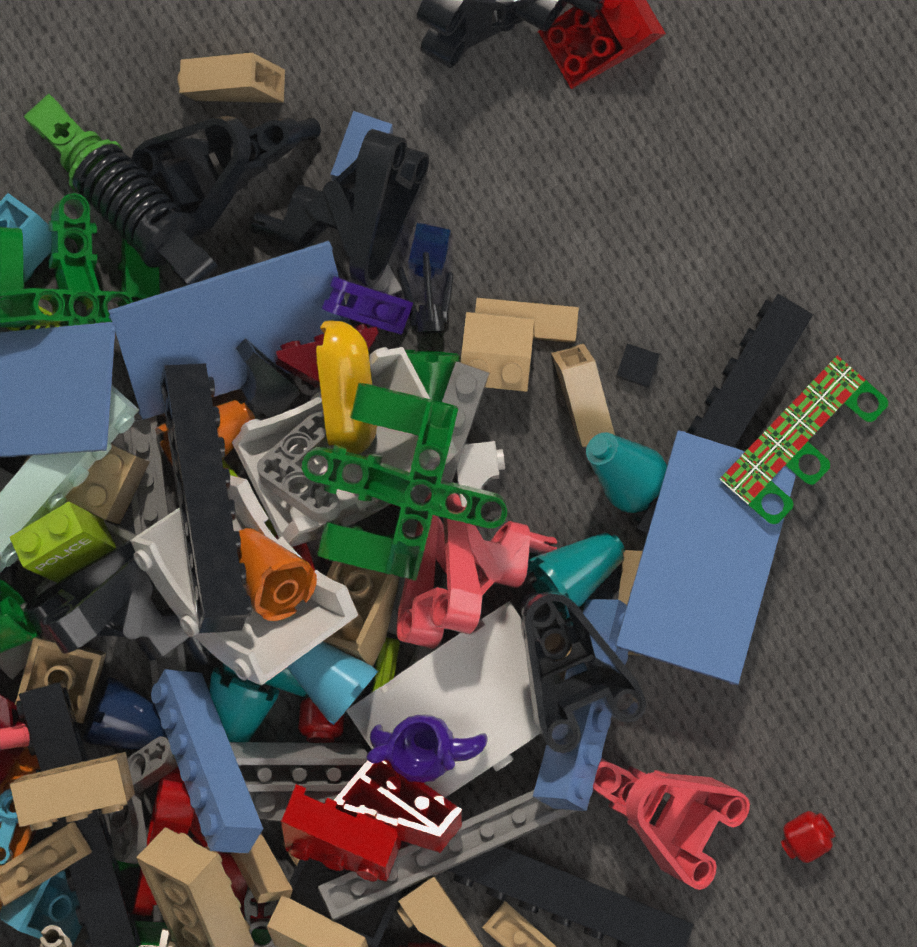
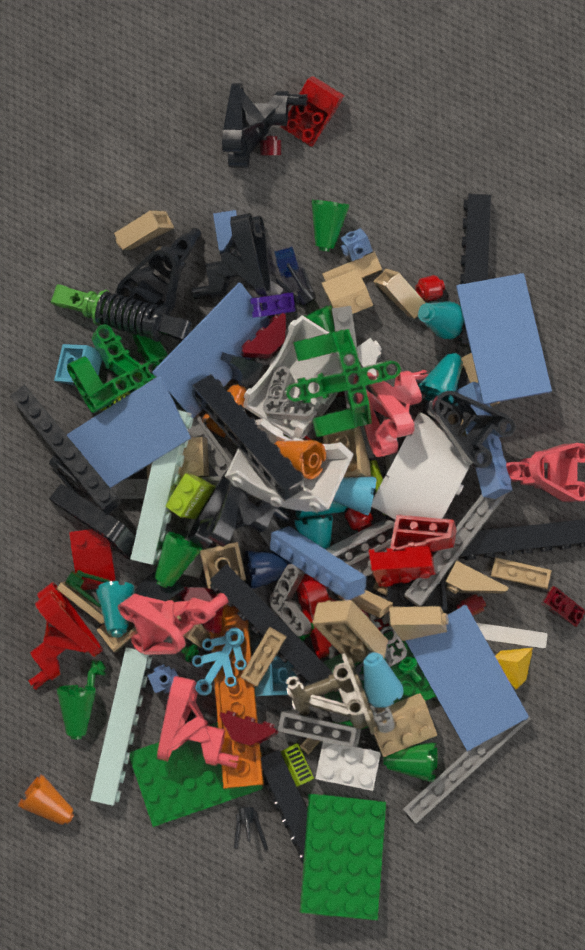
camera: 30 degrees left, 0 degrees up
(72, 791) = (263, 610): tan brick -> none
(341, 366) = (280, 341): yellow brick -> none
(422, 747) = (419, 500): dark purple piece -> none
(504, 53) = (270, 146): none -> dark red plate
(528, 221) = (327, 222): none -> green cone
(553, 280) = (356, 244): none -> medium blue brick
(635, 412) = (430, 288): none -> red head
(637, 365) = (418, 265): black tile -> none
(789, 434) = (510, 260): piece -> none

